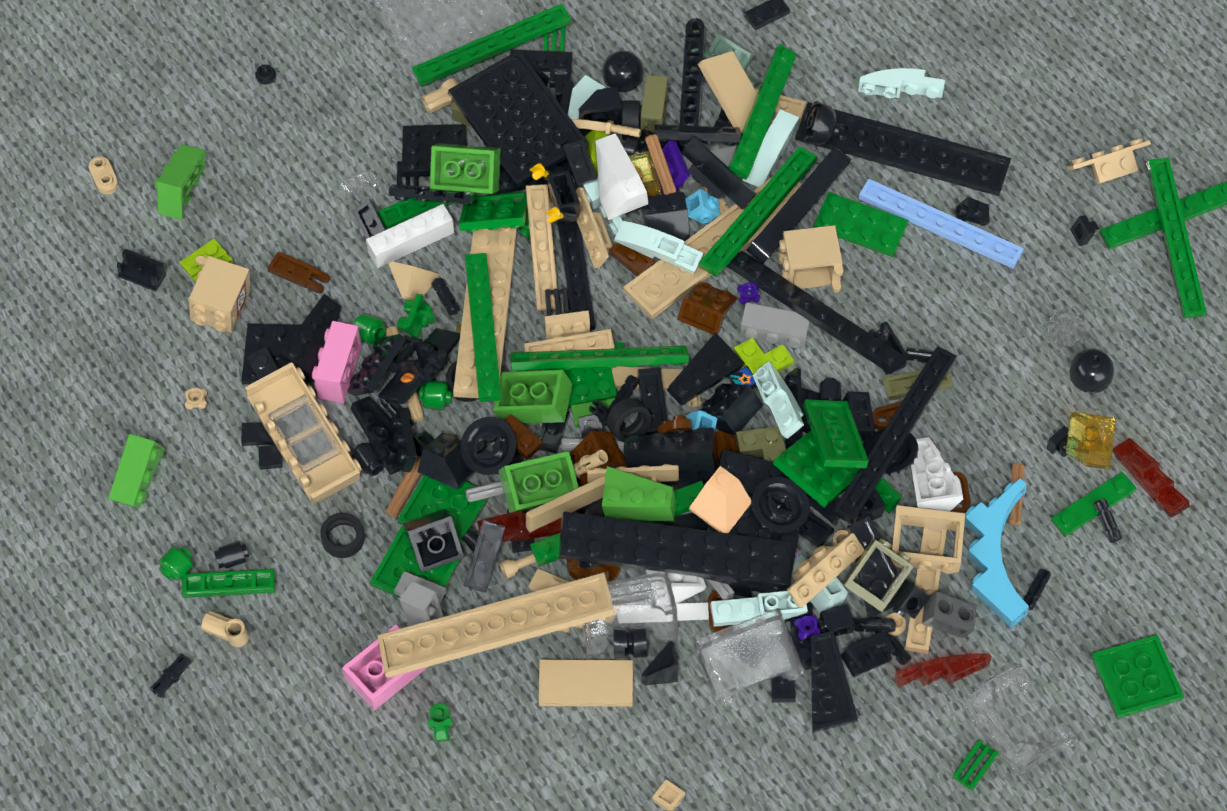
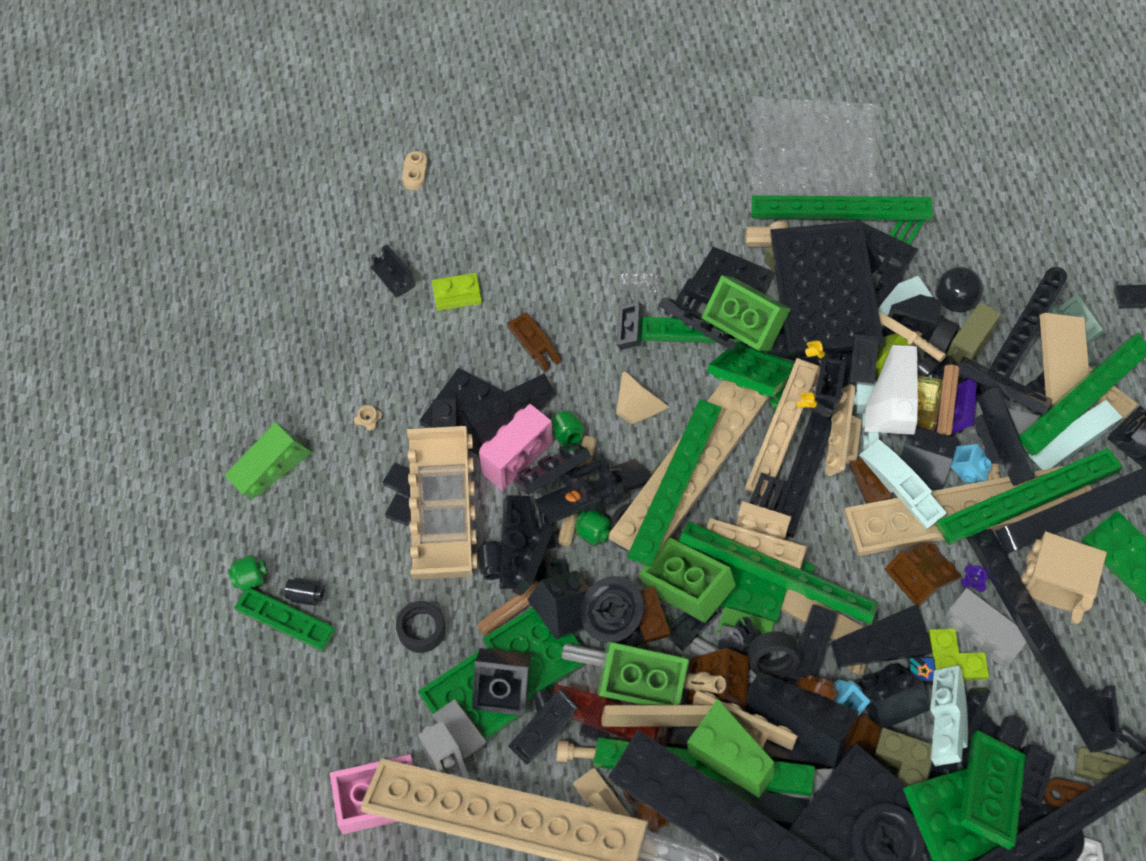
camera: 30 degrees right, 0 degrees up
(170, 675) = (173, 685): black pin -> none
(178, 179) = (474, 203): bright green wedge -> none
(219, 293) = (444, 326): tan container -> none
(224, 628) = (252, 664): tan piece -> none
(265, 74) = (613, 143): black plate -> none
(410, 236) = (659, 355): white brick -> none
(418, 316) = (621, 439): green hips -> none
(445, 296) = (661, 431): black axle -> none
(626, 390) = (787, 621): black axle -> none
(721, 501) = (822, 806): light nougat slope -> none

